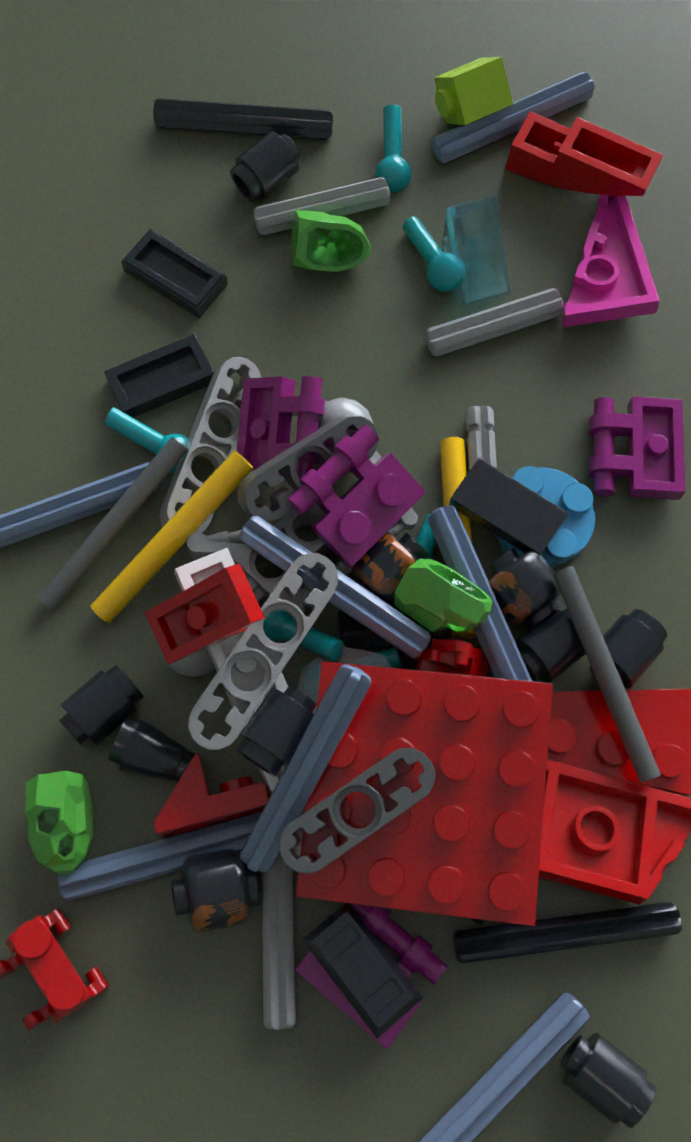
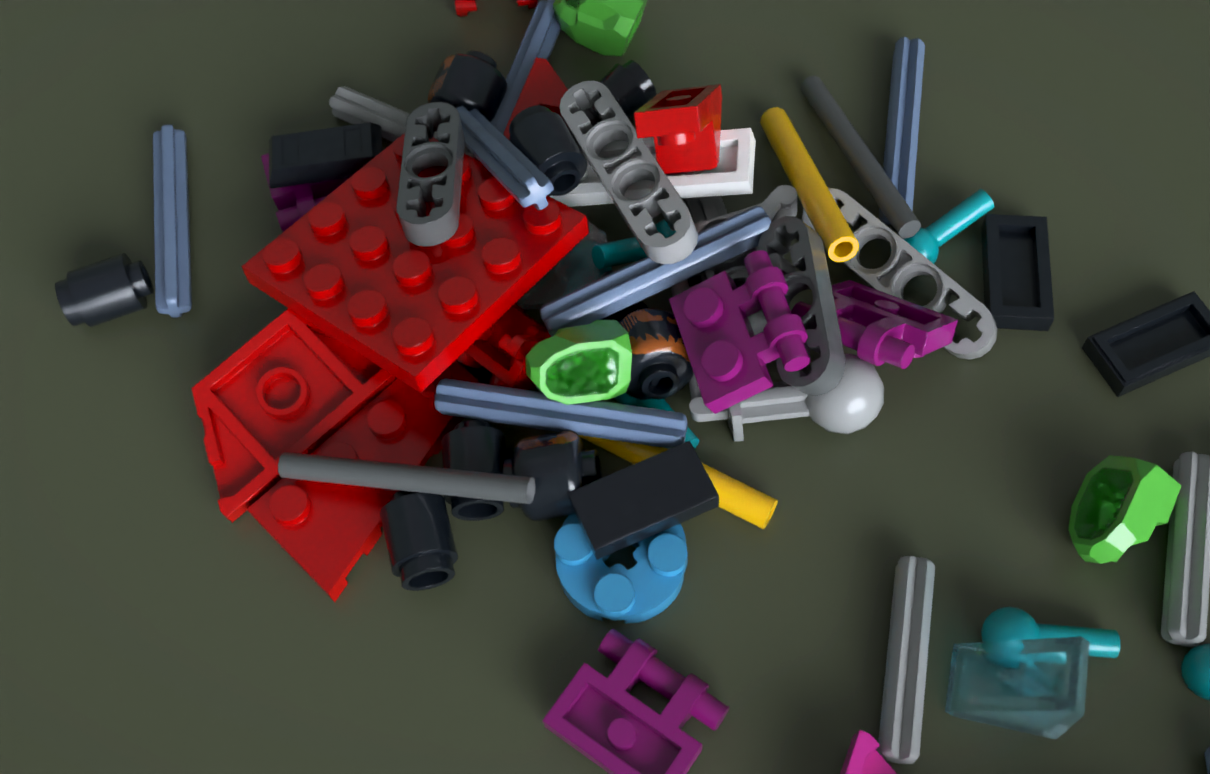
camera: 130 degrees right, 10 degrees down
(100, 706) = (678, 65): black brick -> none
(480, 435) = (746, 541): light grey axle -> none
(567, 932) = (229, 334): black axle -> none

